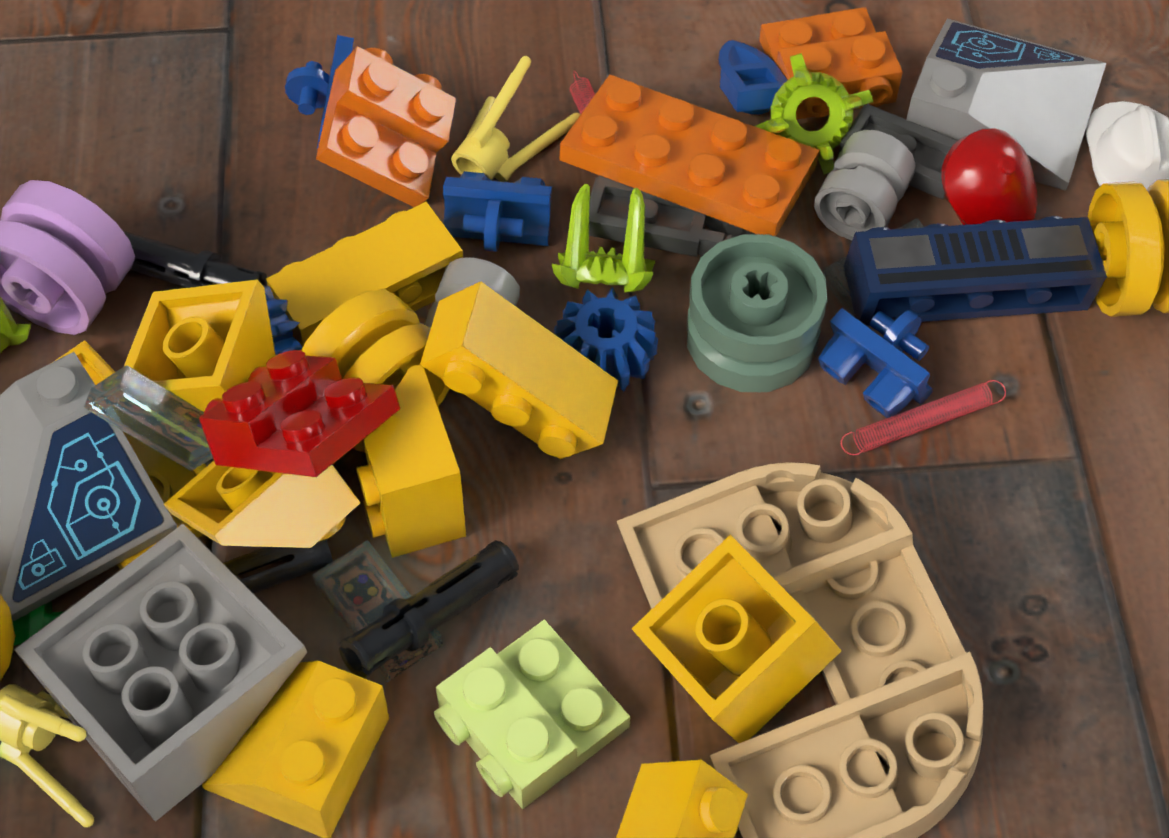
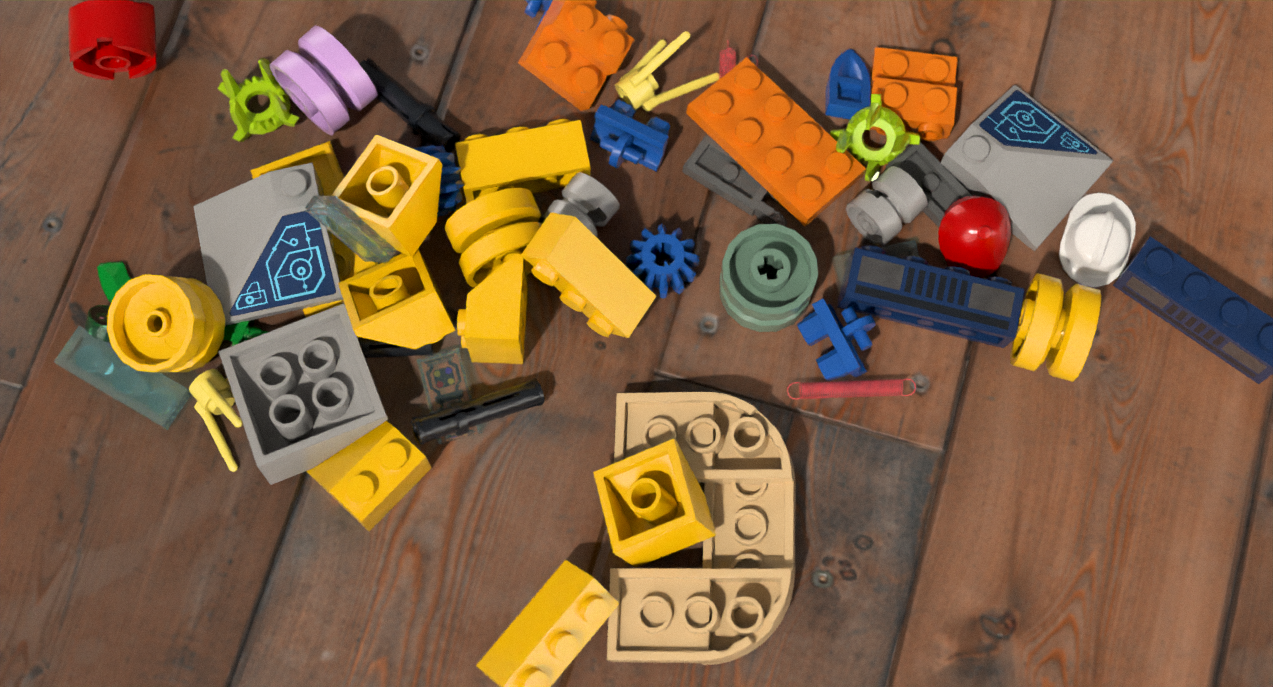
camera: 20 degrees right, 15 degrees up
(294, 416) = (429, 267): red plate -> none
(529, 713) = (514, 498): yellowish green plate -> none
(611, 269) = (700, 209): lime piece -> none

